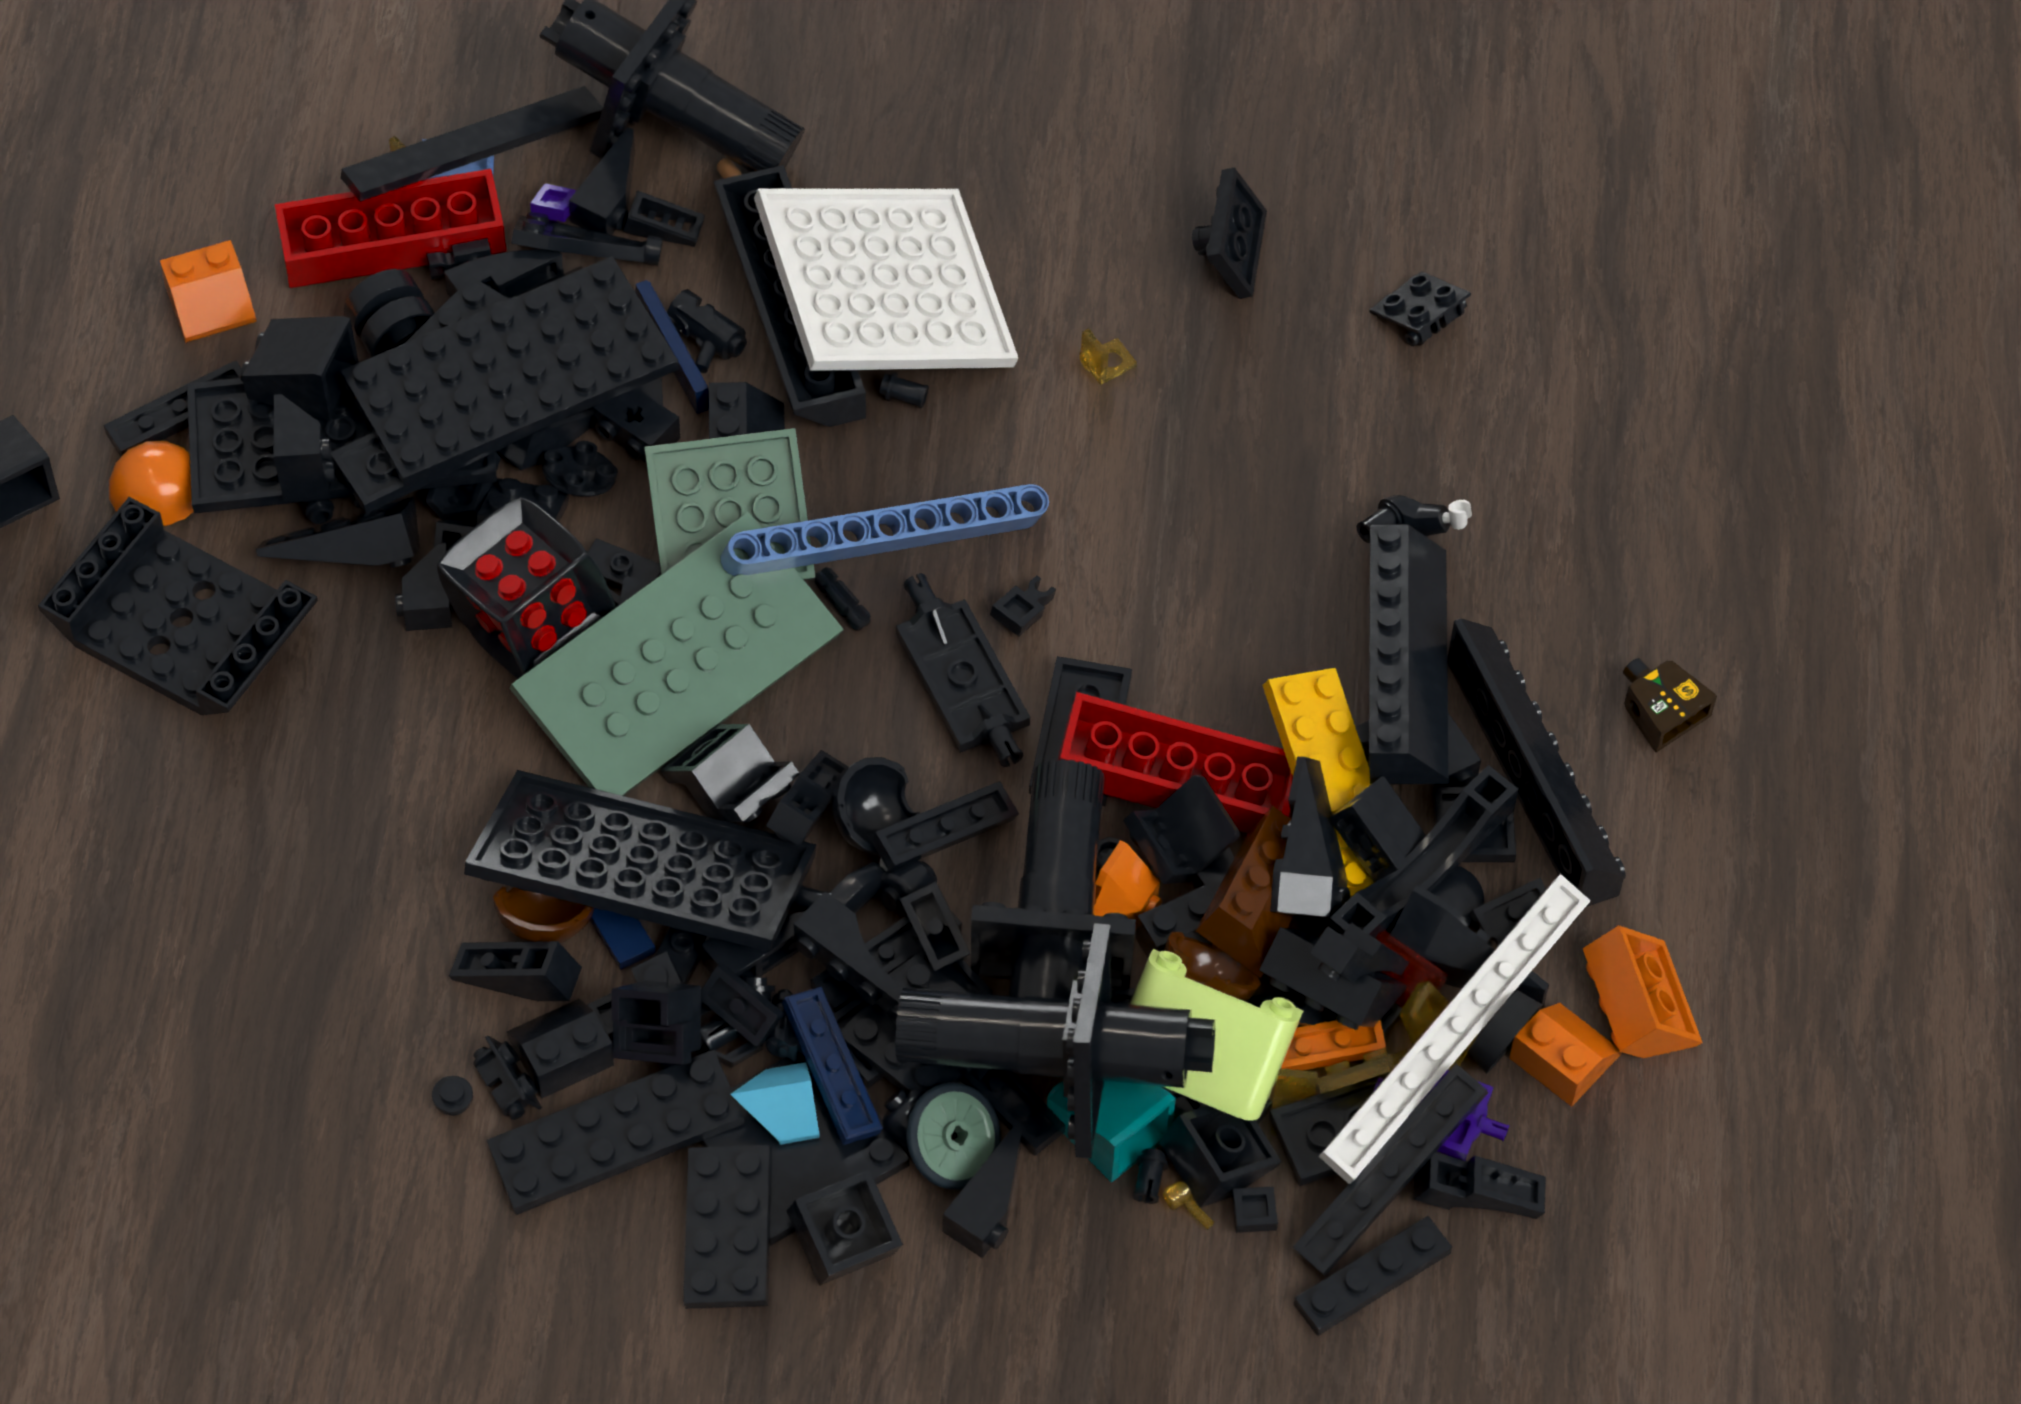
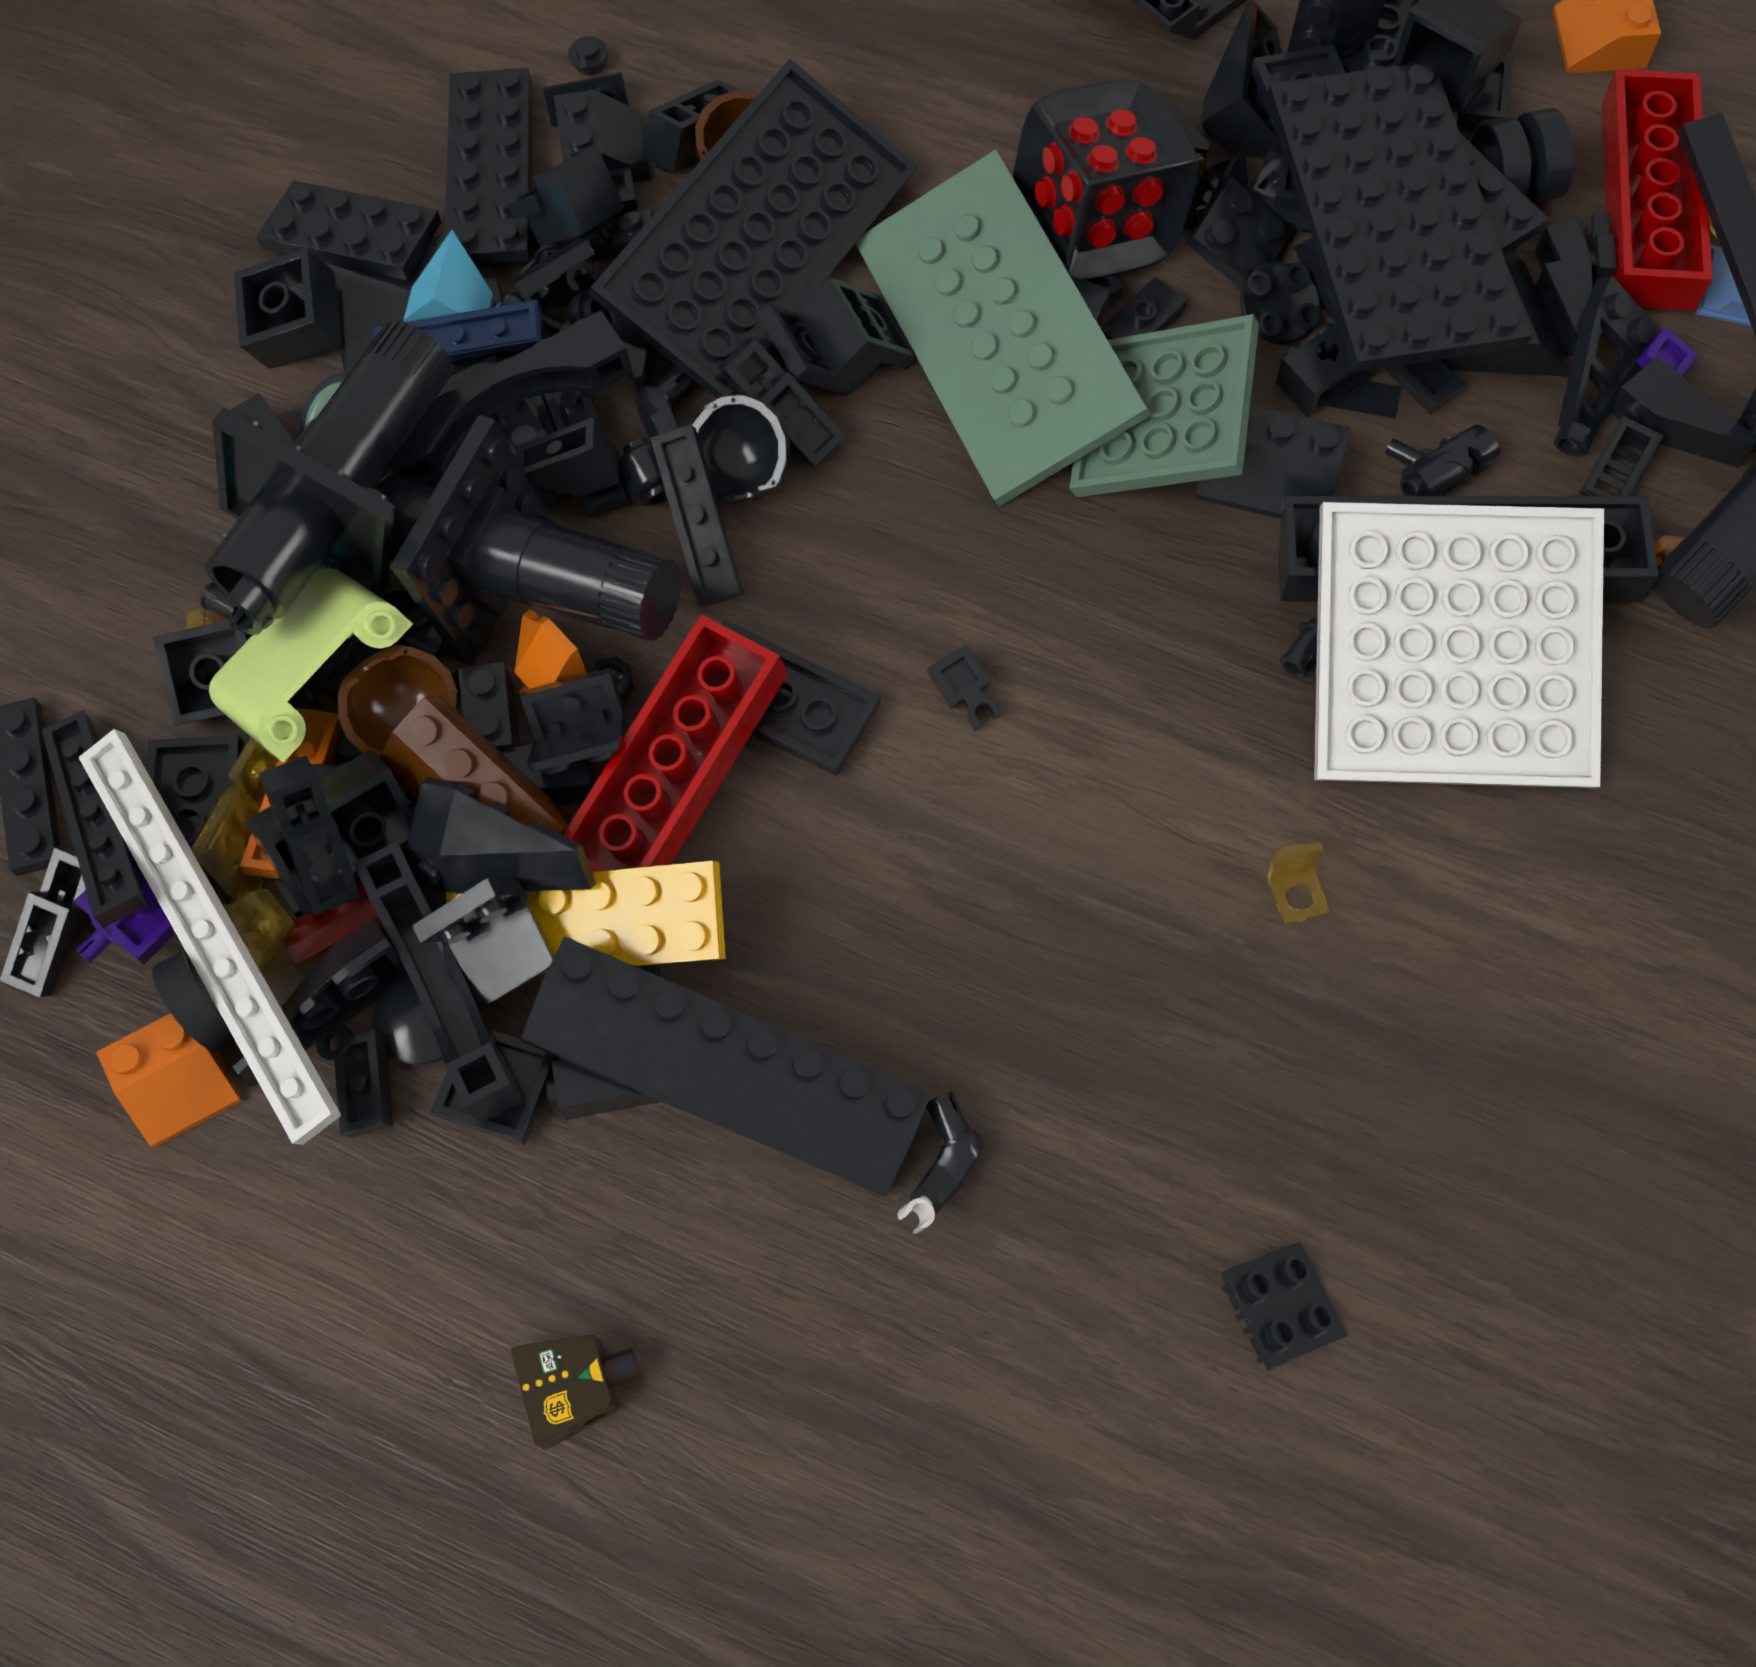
camera: 115 degrees right, 10 degrees up
(688, 373) = (1429, 422): dark blue tile -> none
(842, 598) = (1037, 512): black axle -> none
(871, 539) = (1094, 570): medium blue beam -> none
(962, 673) = (894, 598): black plate -> none
(1234, 233) = (1445, 1089): black plate -> none
(1254, 1209) = (142, 691): black plate -> none
(1532, 762) = (535, 1177): black slope -> none
(1640, 993) = (195, 1191): orange slope -> none

